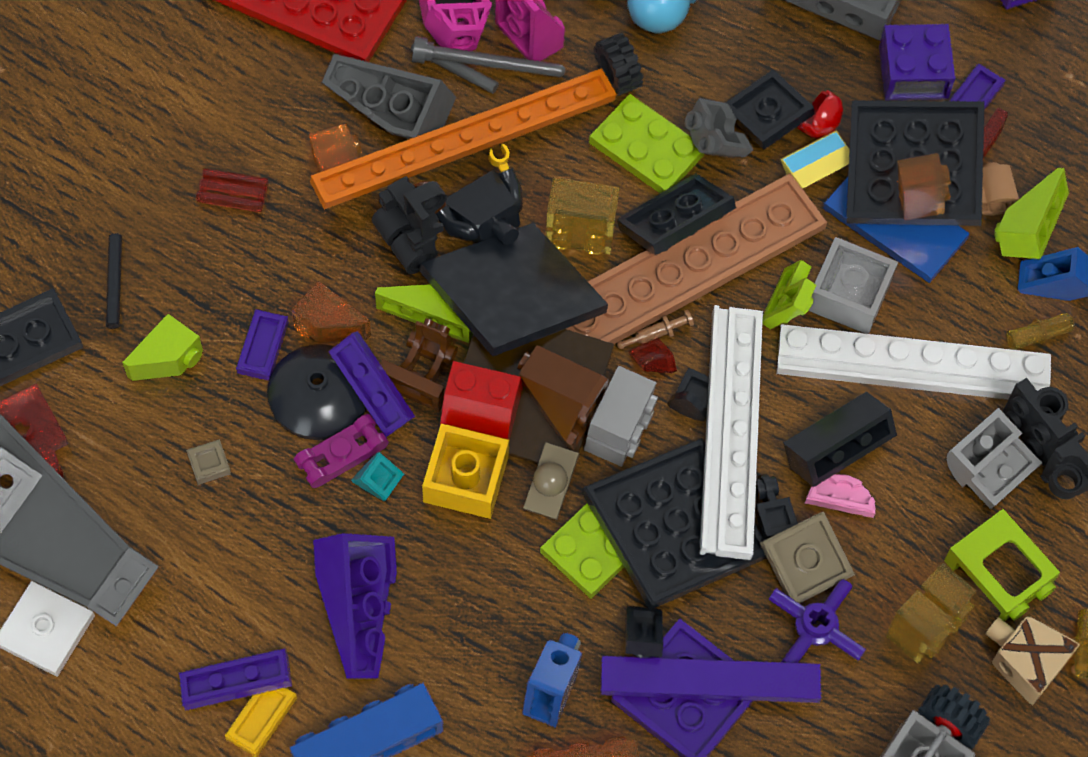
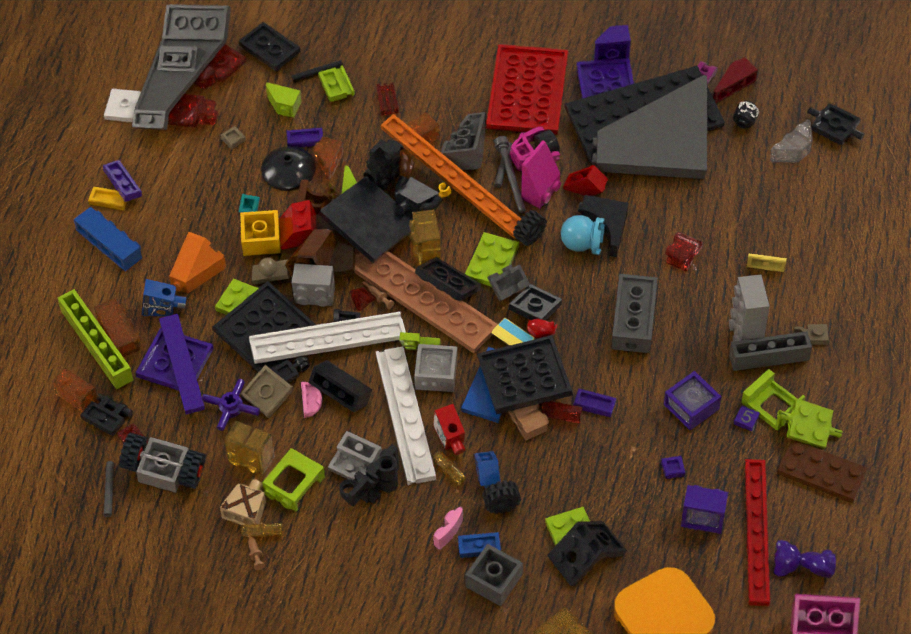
camera: 75 degrees right, 10 degrees down
(127, 502) = (195, 111): none -> clear red plate
(164, 257) = (336, 83): none -> lime plate
(341, 451) = (257, 185): magenta plate -> none
(354, 586) = (181, 213): dark purple wedge -> none
(371, 384) = (293, 180): dark purple tile -> none
(493, 601) = (195, 264): none -> orange slope
(643, 632) = (197, 328): black plate -> none
(916, 62) = (599, 365): dark purple piece -> none
(923, 186) = (495, 367): clear orange brick -> none
(978, 303) = (449, 429): none -> red torso
(1032, 218) = (521, 445): lime slope -> none

